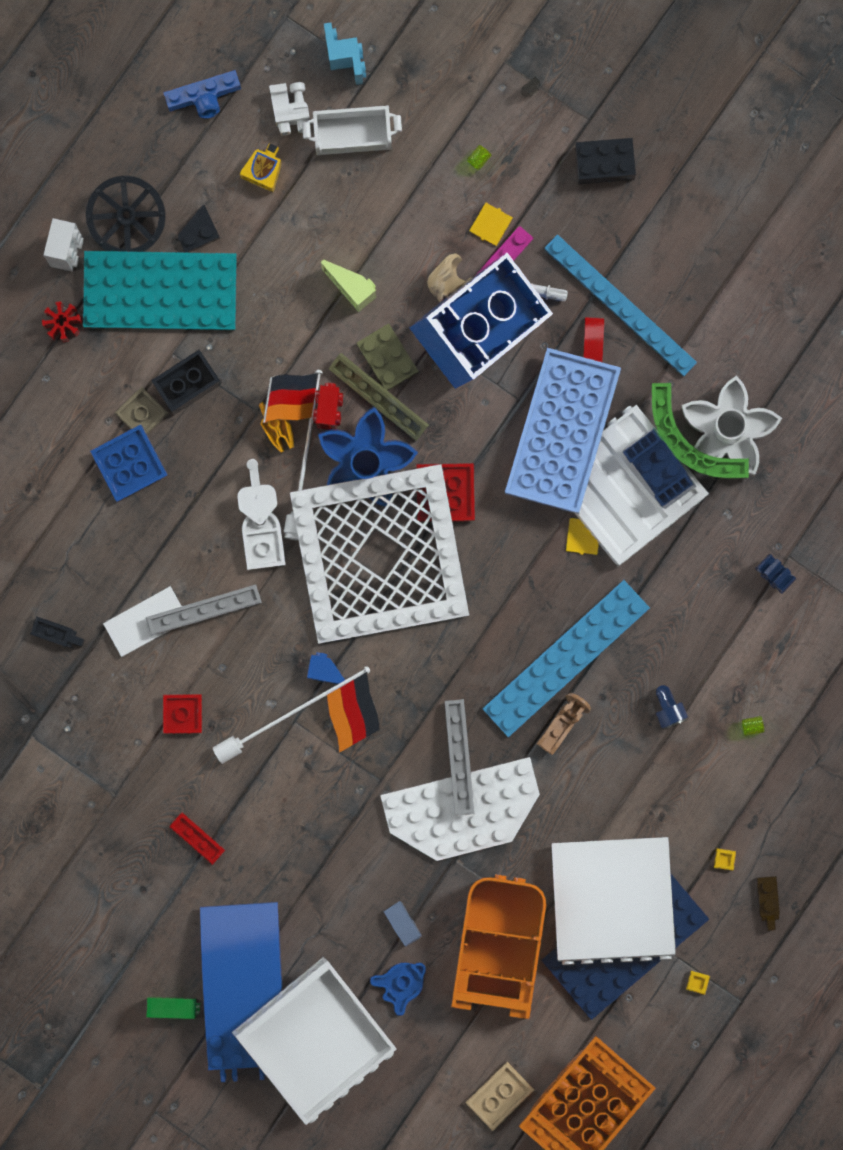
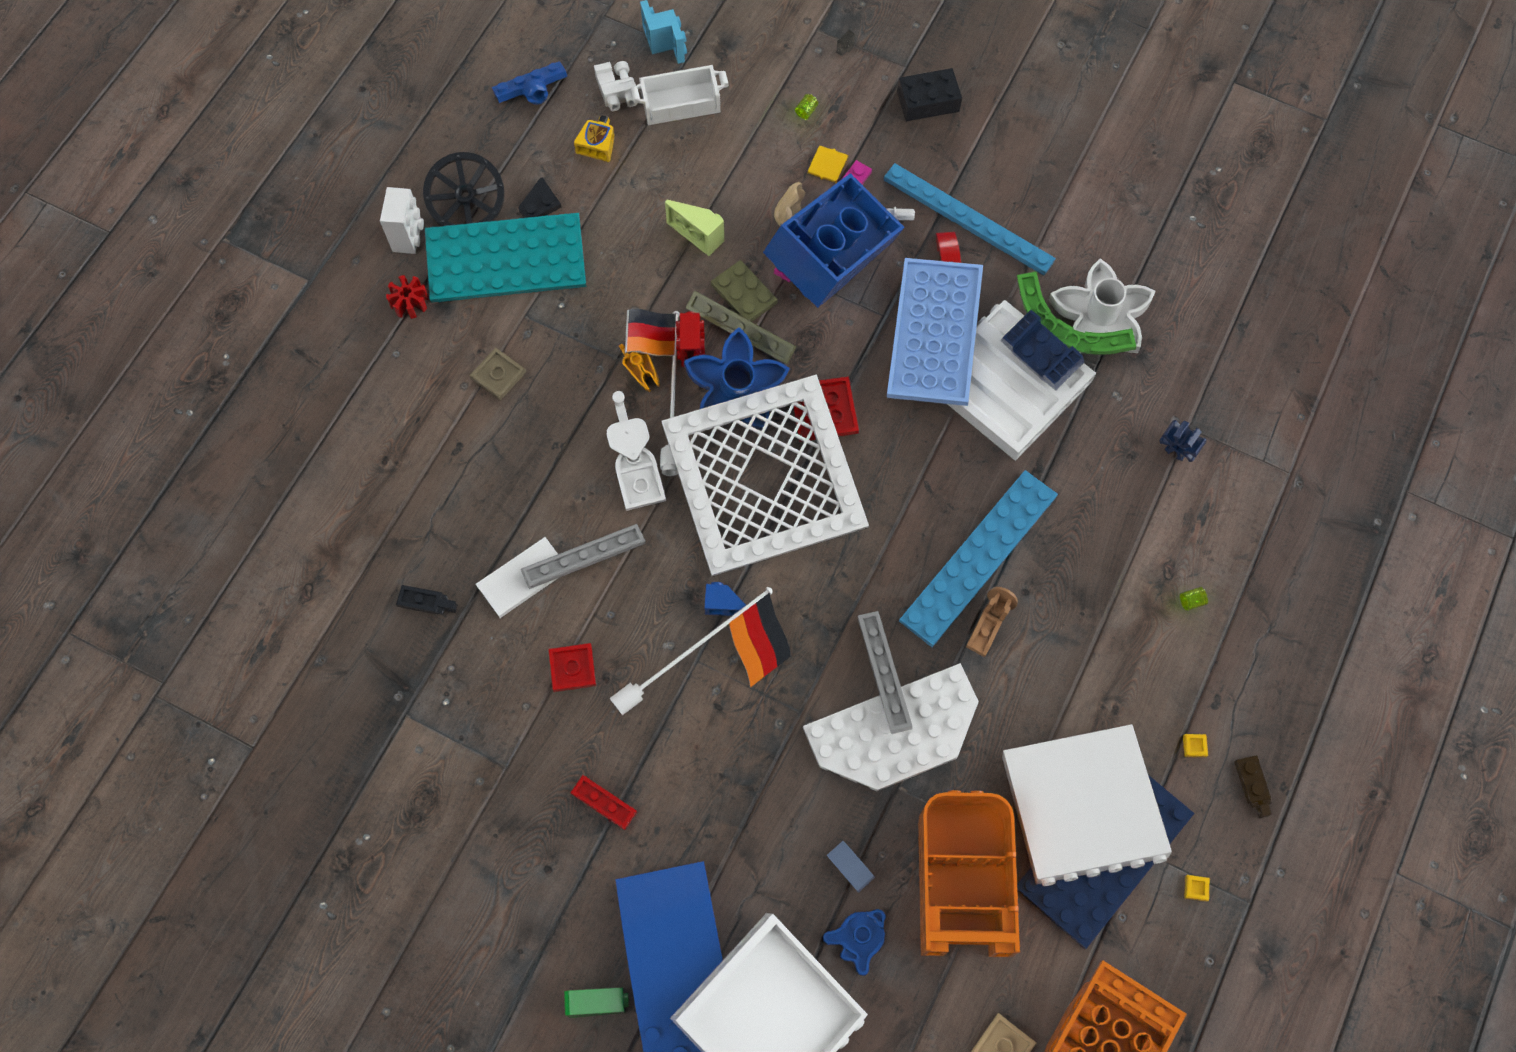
camera: 10 degrees left, 15 degrees down
(129, 463) = (488, 420): blue plate -> none
(186, 382) = (541, 335): black brick -> none
(580, 538) = (971, 438): yellow piece -> none
(672, 713) = (1103, 596): dark blue piece -> none

